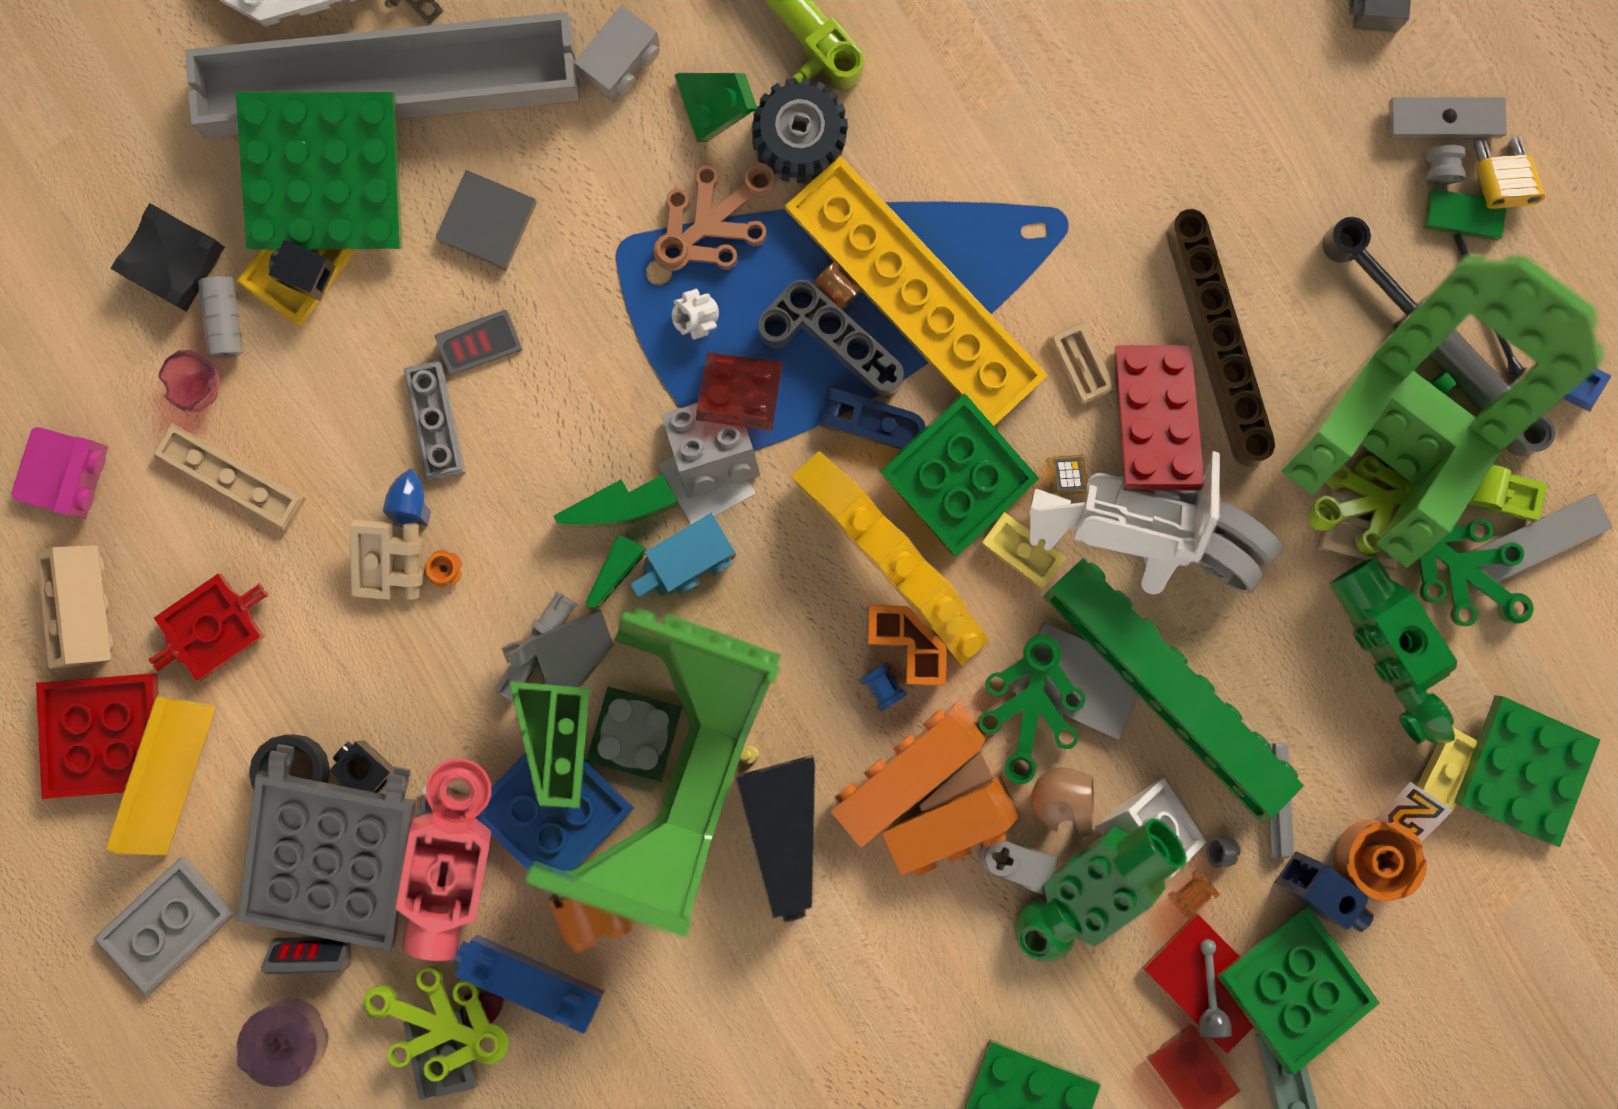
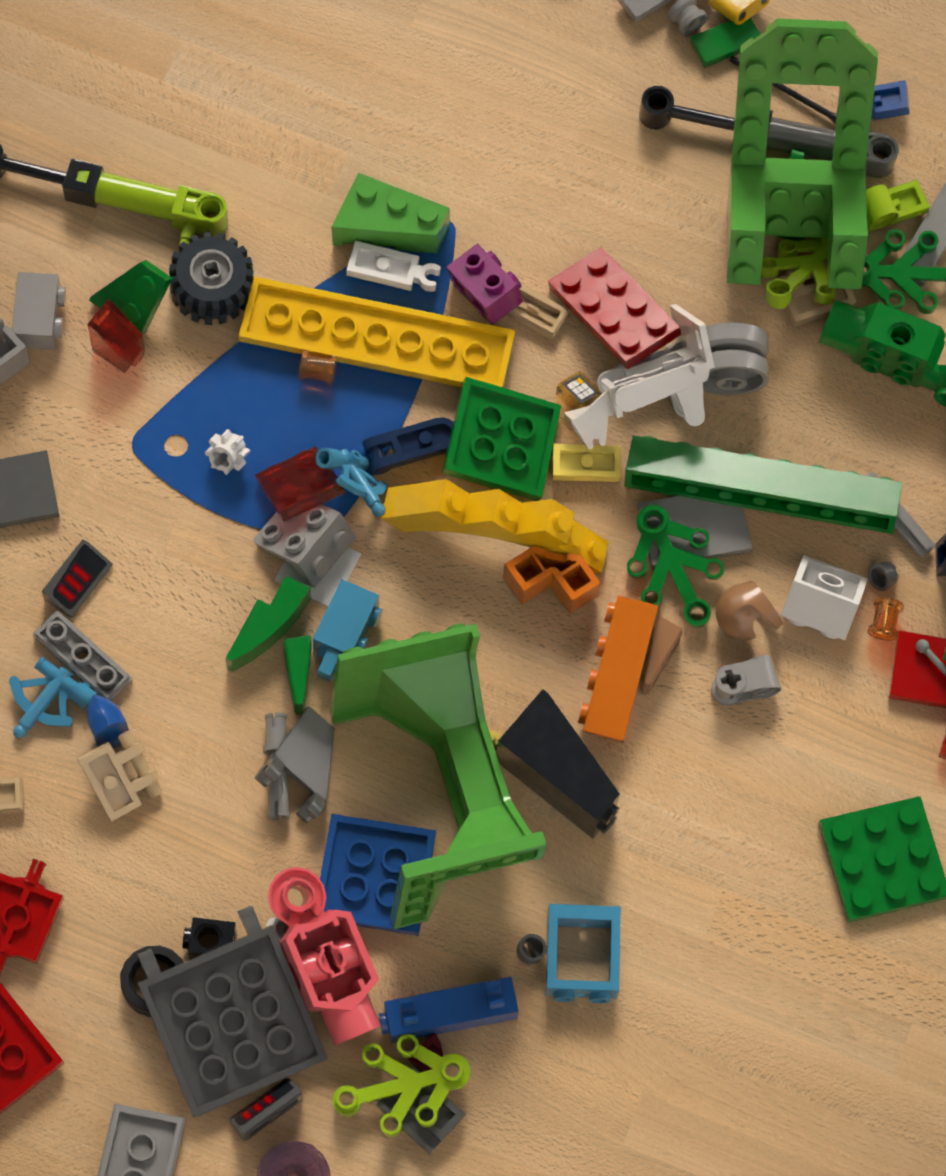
camera: 35 degrees left, 15 degrees down
(161, 777) = (61, 1043): yellow tile -> none
(394, 430) = (57, 682): none -> dark azure piece
(433, 566) = (166, 748): orange plate -> none
(554, 739) = (341, 809): bright green wedge -> none
(584, 923) = (459, 916): orange brick -> none
(634, 734) = (397, 780): light grey piece -> none
(649, 978) = (536, 946): none -> dark grey hinge
(668, 131) = (115, 337): none -> clear red slope
(710, 222) = (190, 383): nougat plant -> none
(711, 983) = (589, 917): none -> dark azure window
(796, 406) = (353, 467): none -> dark azure piece
(836, 343) = (345, 408): dark grey beam -> none
(883, 686) = (556, 623): blue bush -> none
(952, 828) = (677, 686): orange wedge -> none
(975, 231) = (390, 267): none -> white plate
(1008, 181) = (390, 218): none -> bright green wedge
(1052, 310) = (485, 283): none -> magenta brick
(1100, 890) = (815, 652): green brick -> none
(1225, 320) = (622, 242): dark brown beam -> none

